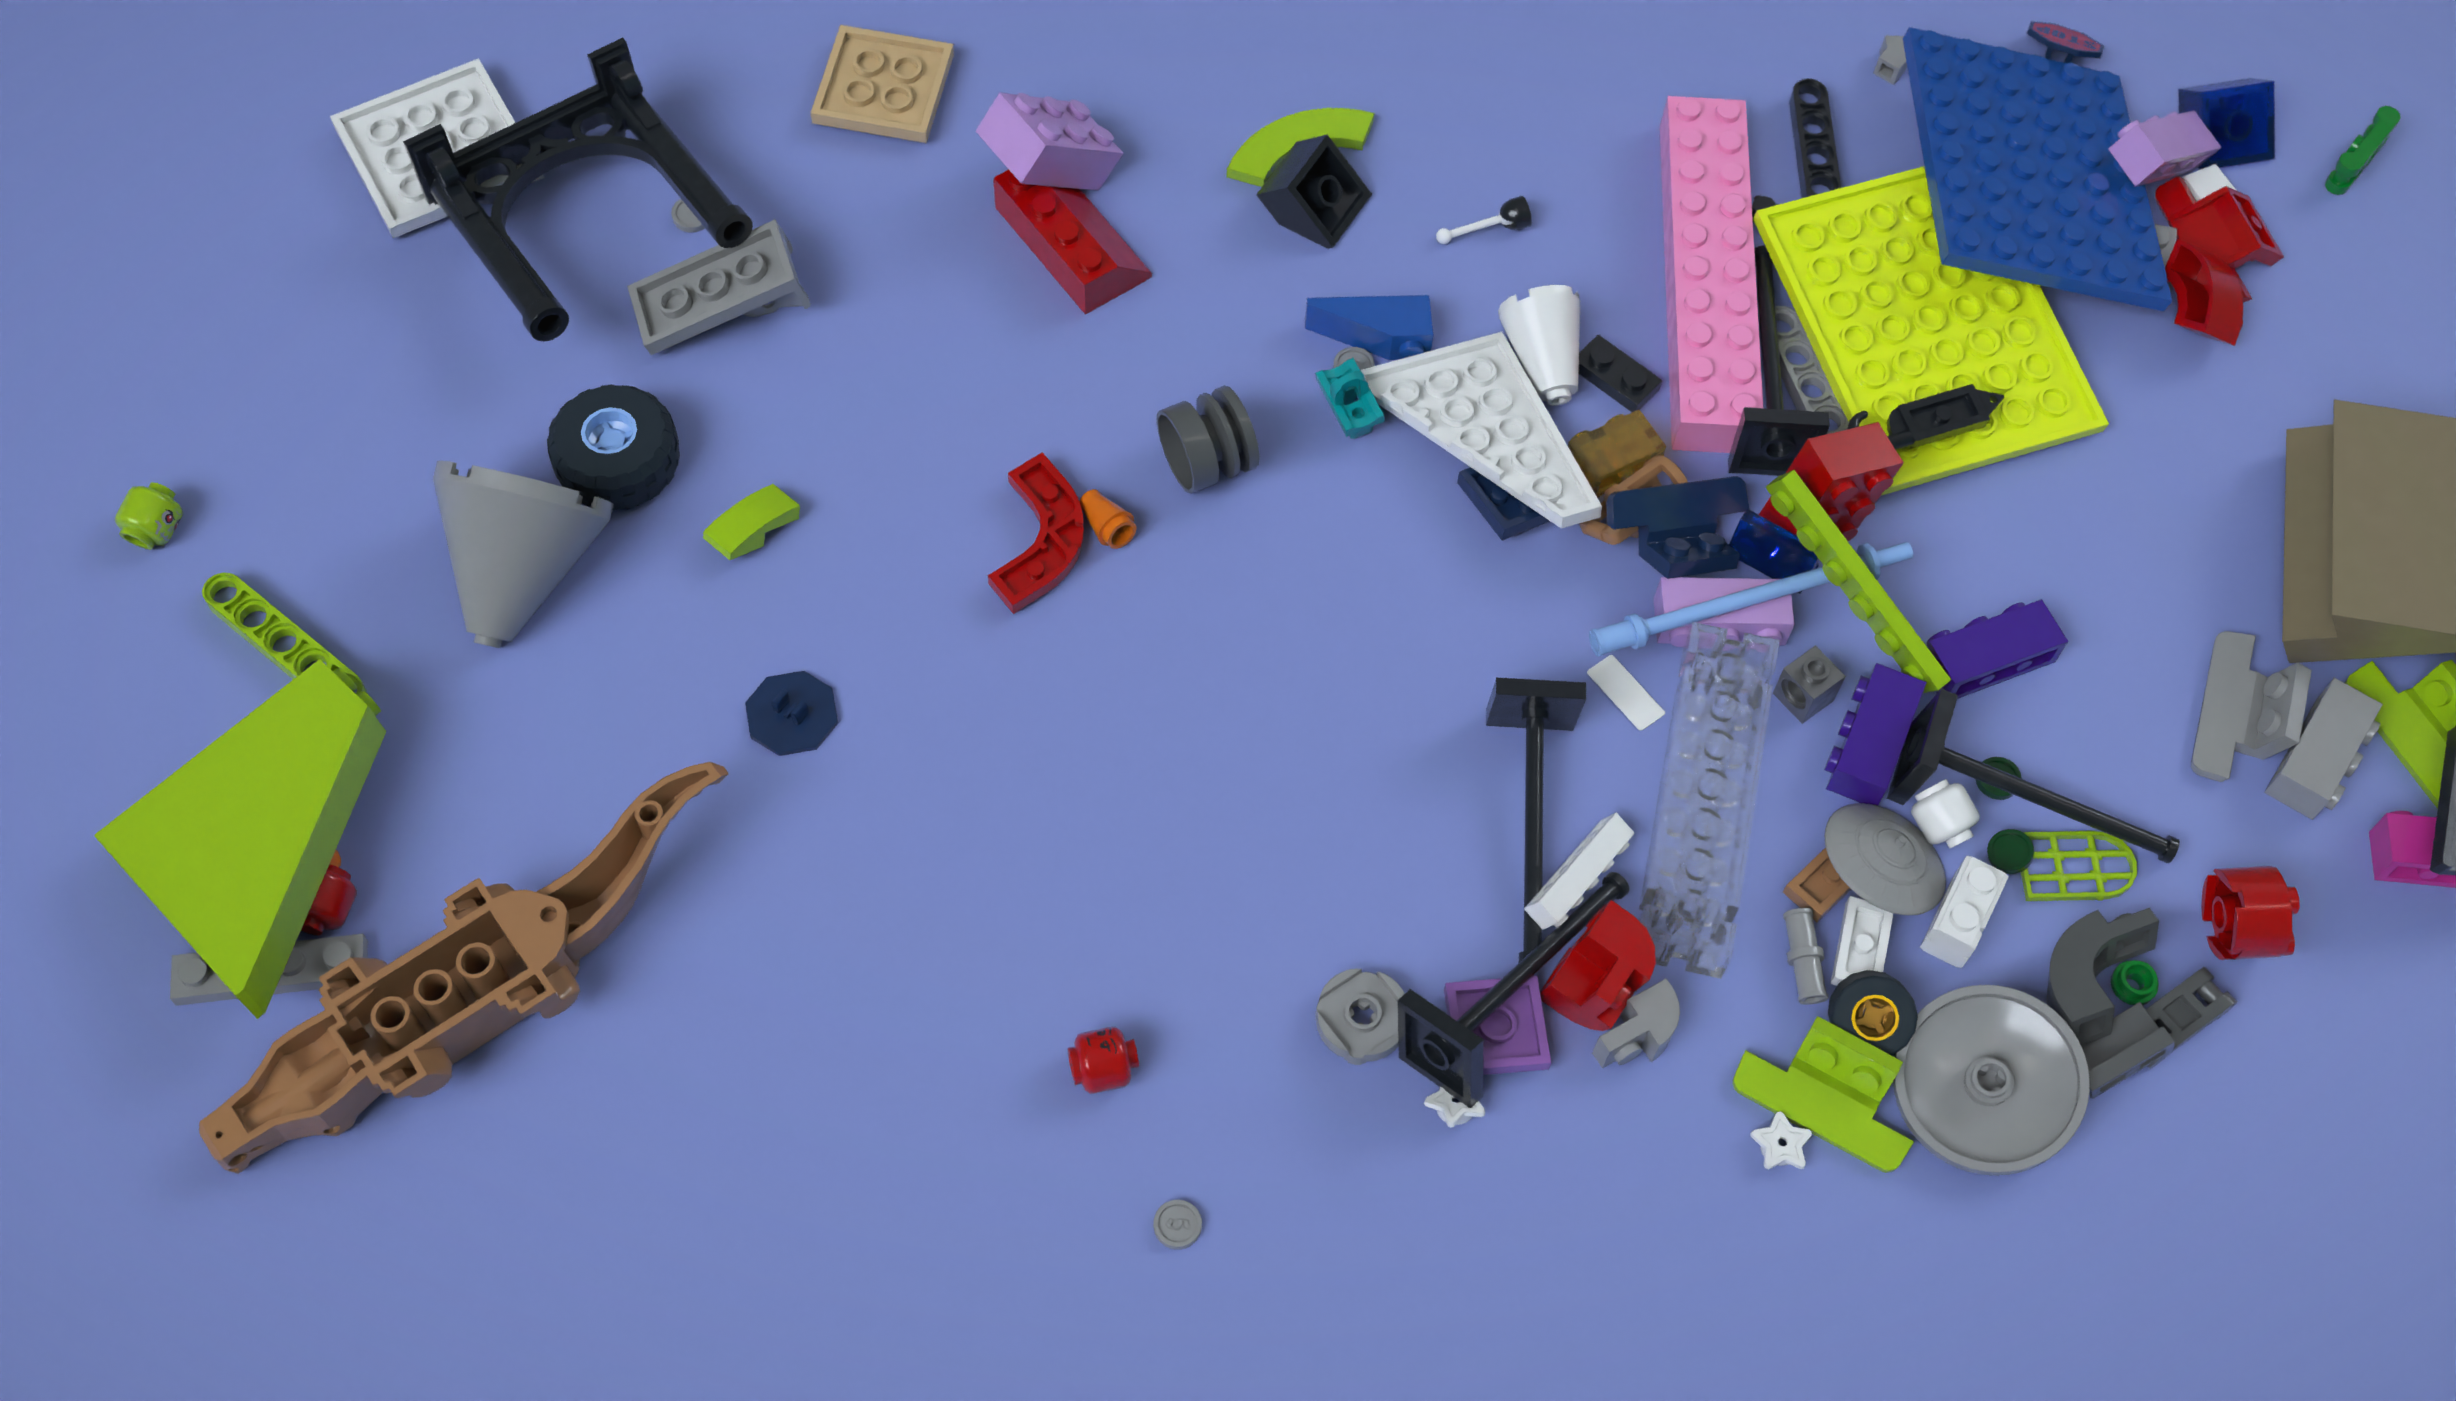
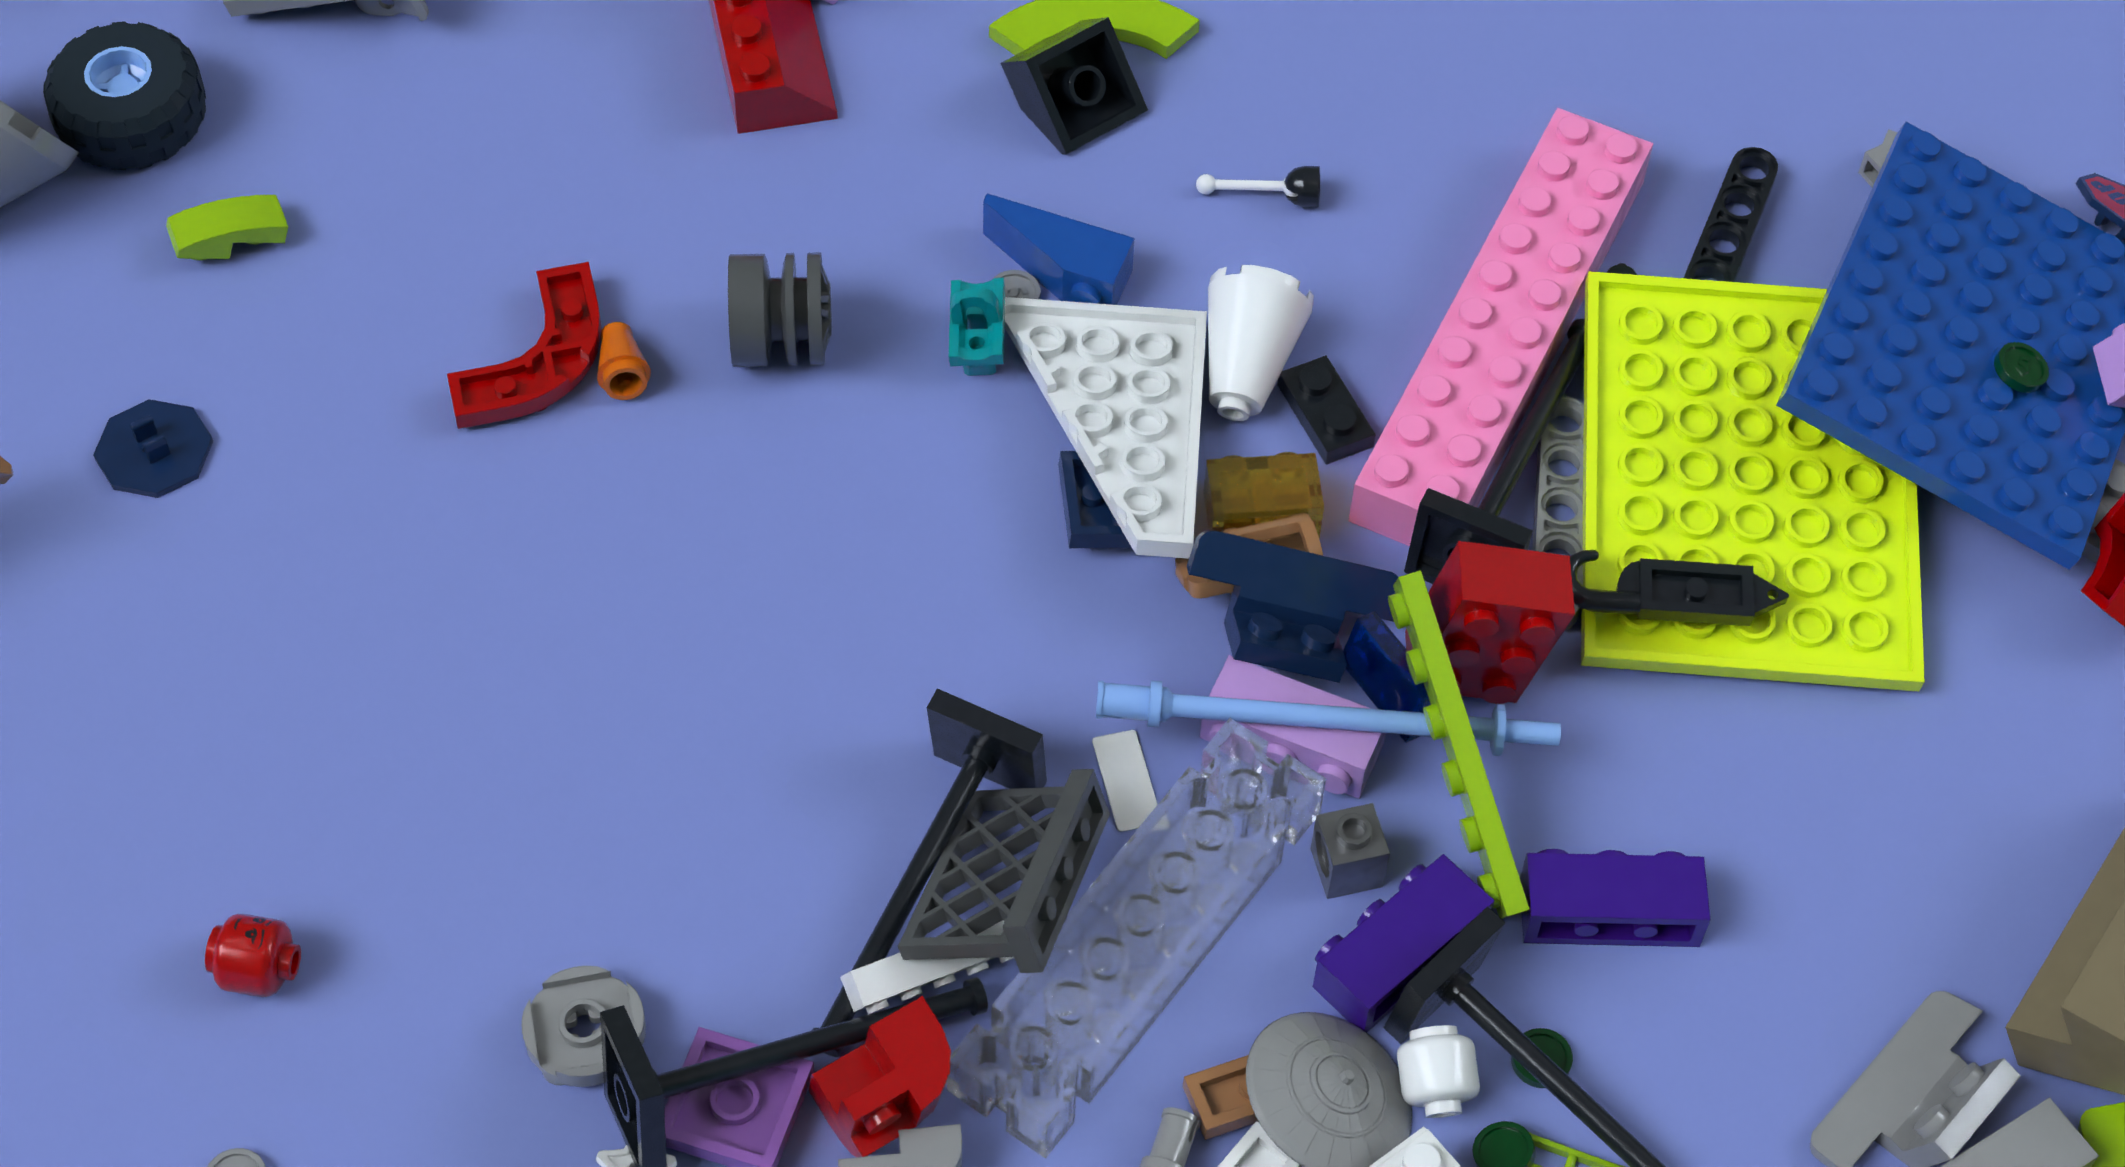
camera: 25 degrees right, 5 degrees down
(1638, 784) = (1048, 875): none -> dark grey fence
(2074, 179) = (2021, 367): none -> dark green piece

